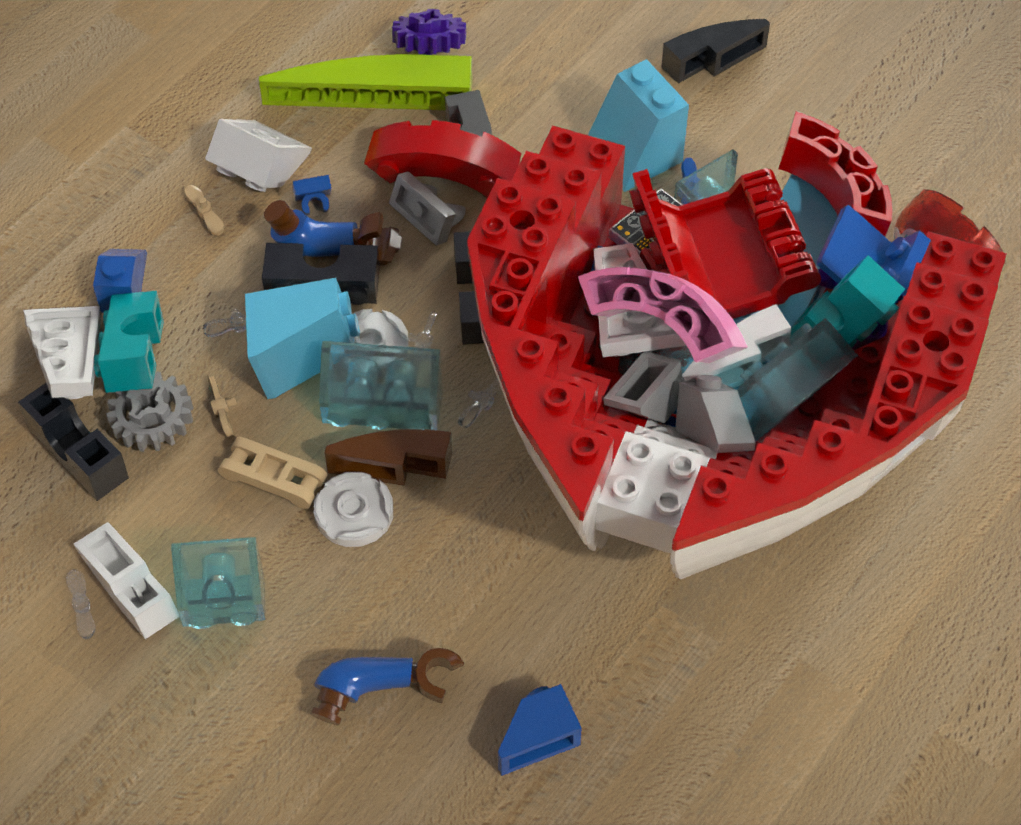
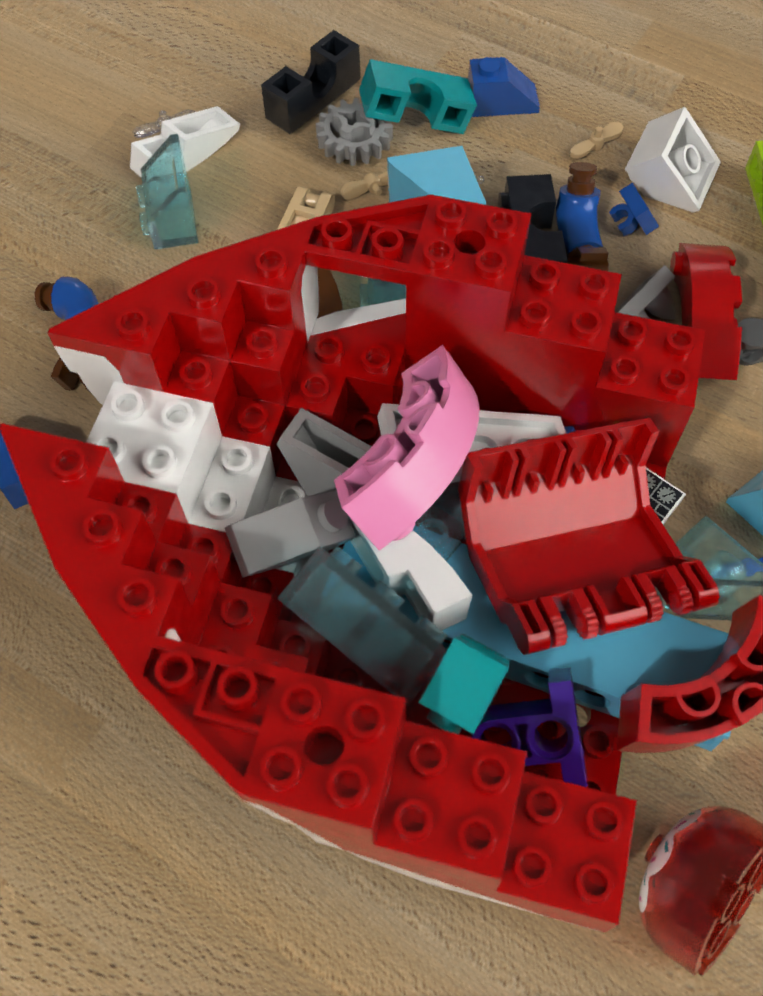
camera: 85 degrees right, 5 degrees up
(66, 347) = (355, 47): white wing -> none
(855, 238) = (570, 712): blue bracket -> none

